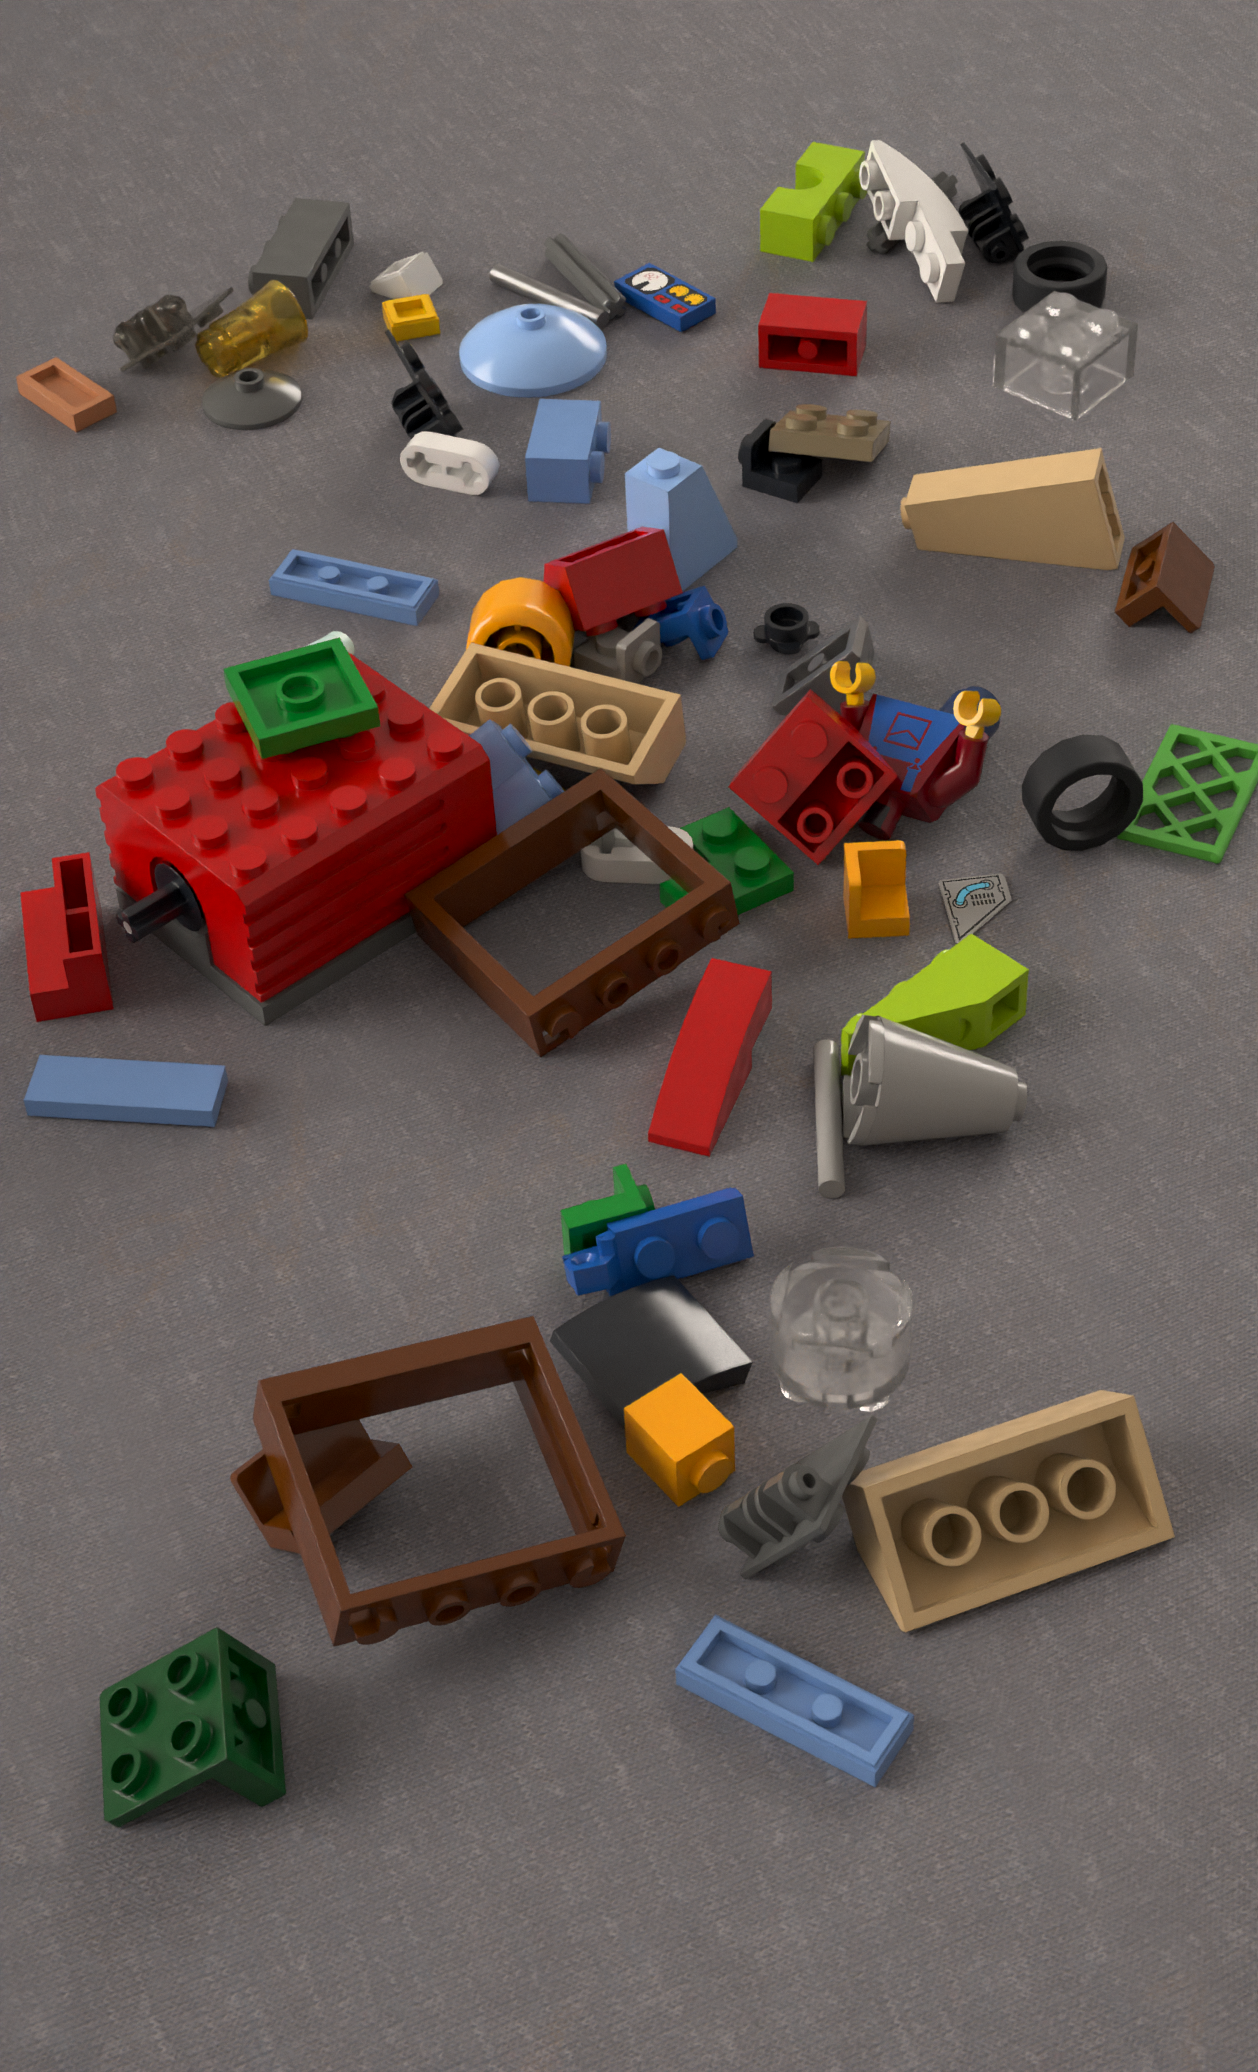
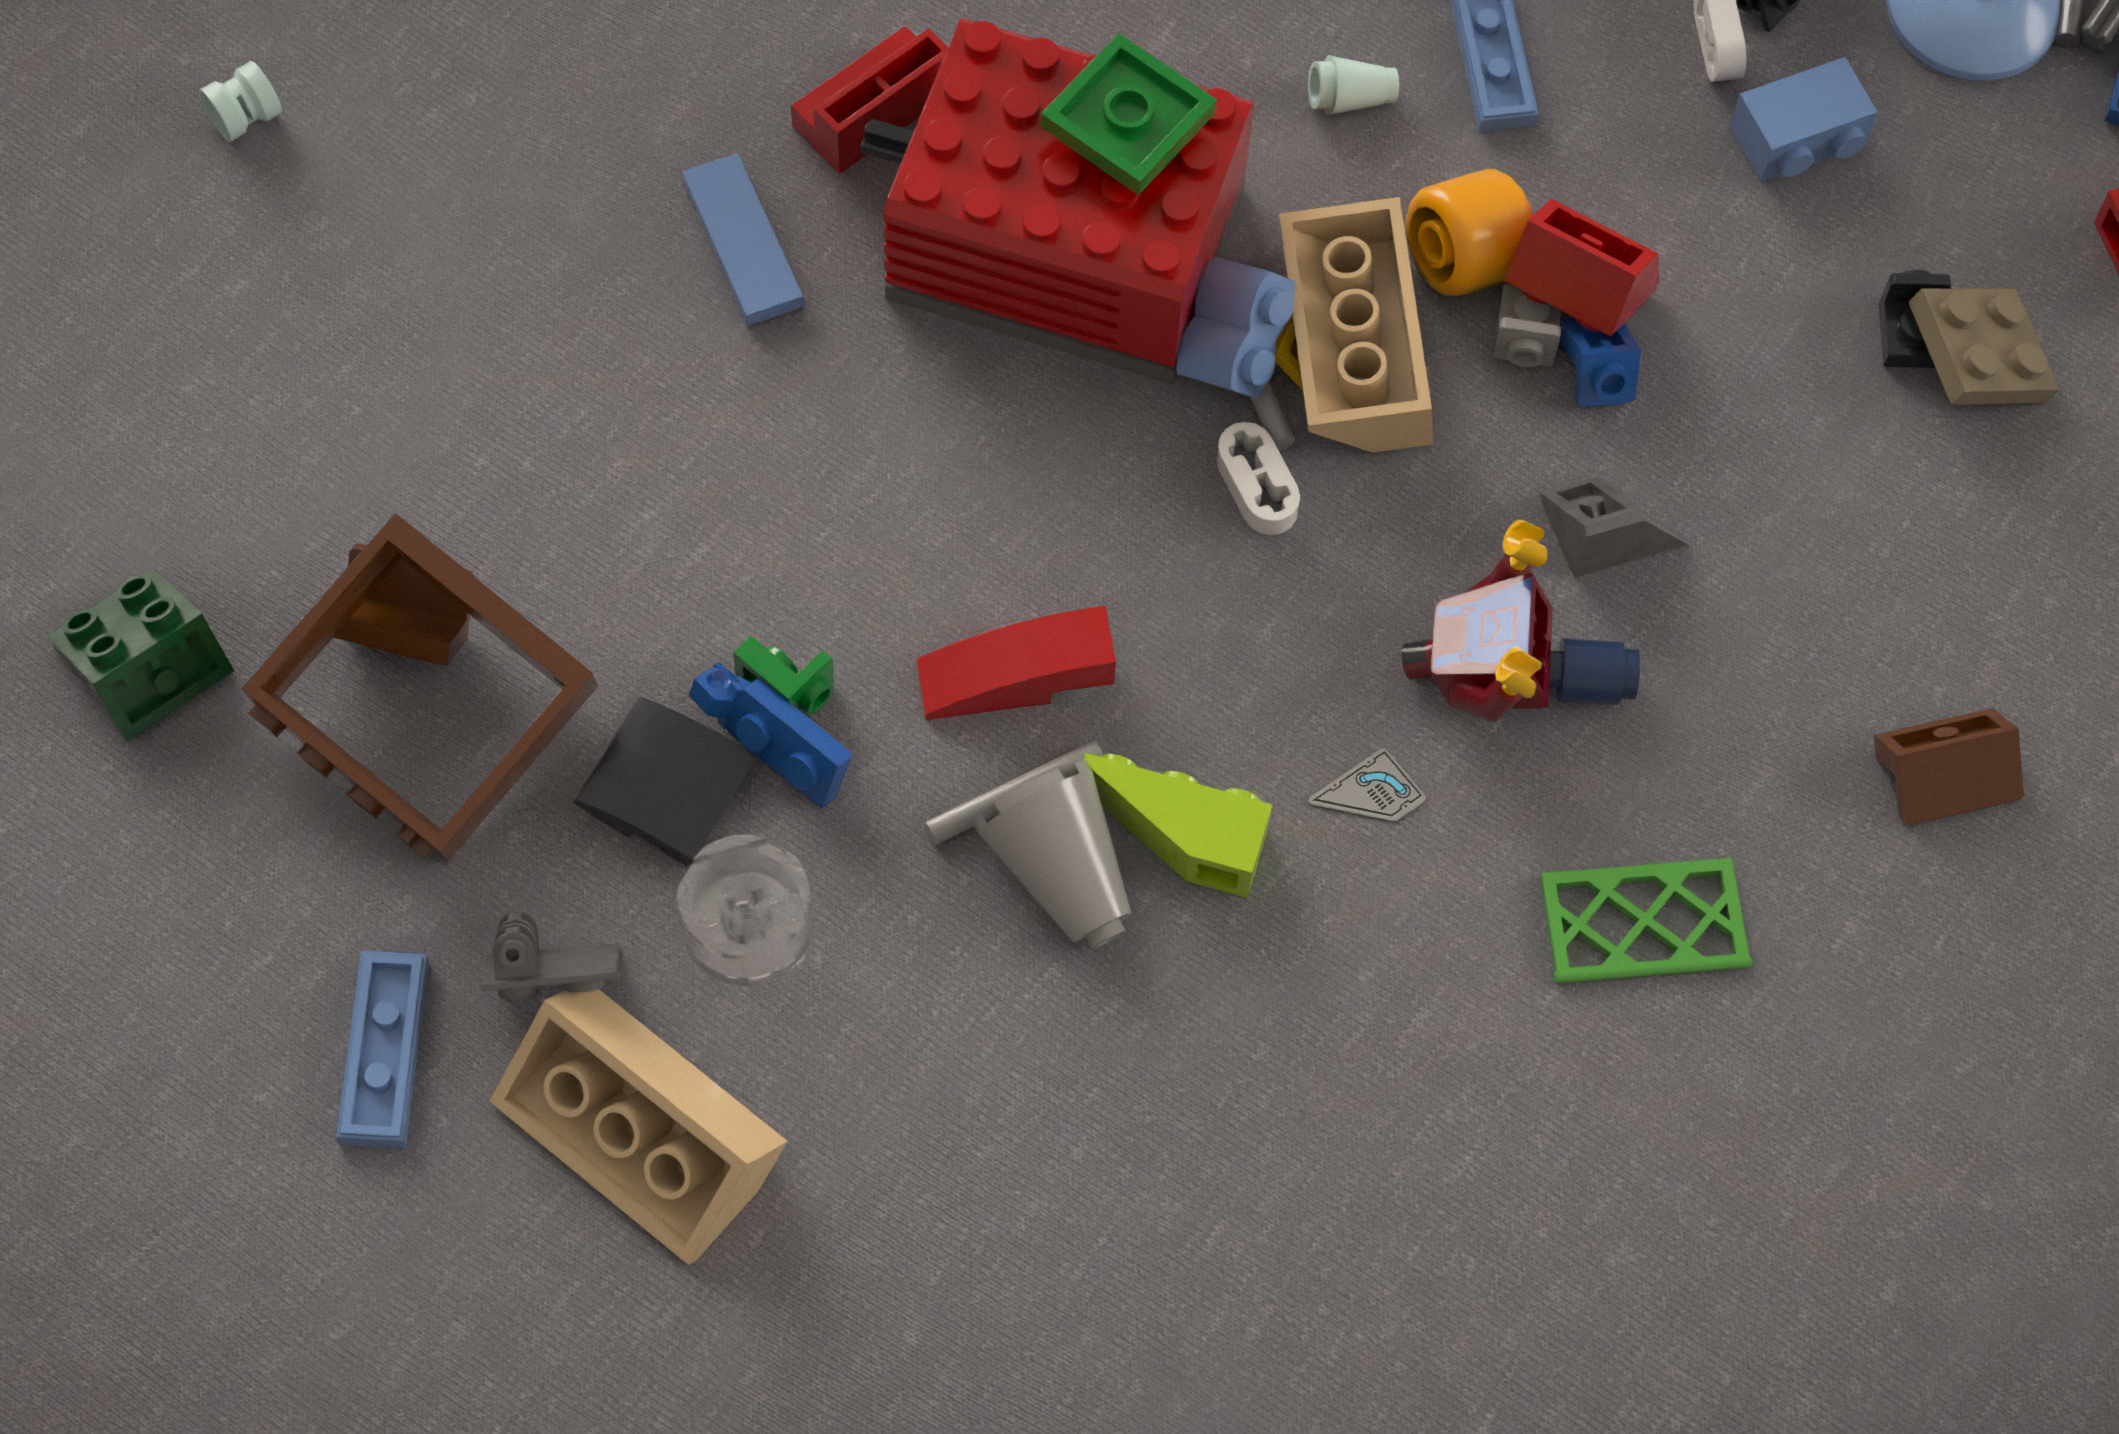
camera: 55 degrees right, 20 degrees up
(530, 850) = (1152, 381): reddish brown window -> none
(679, 498) = (1720, 278): light blue slope -> none
(680, 1440) = (577, 846): light orange brick -> none
(740, 857) = (1282, 576): green plate -> none
(786, 628) = (1660, 437): black plate -> none
(813, 777) = (1409, 573): red slope -> none
(876, 889) = (1309, 699): light orange panel -> none
(1020, 510) = (1959, 580): tan slope -> none
(1067, 764) = (1531, 817): black tyre -> none

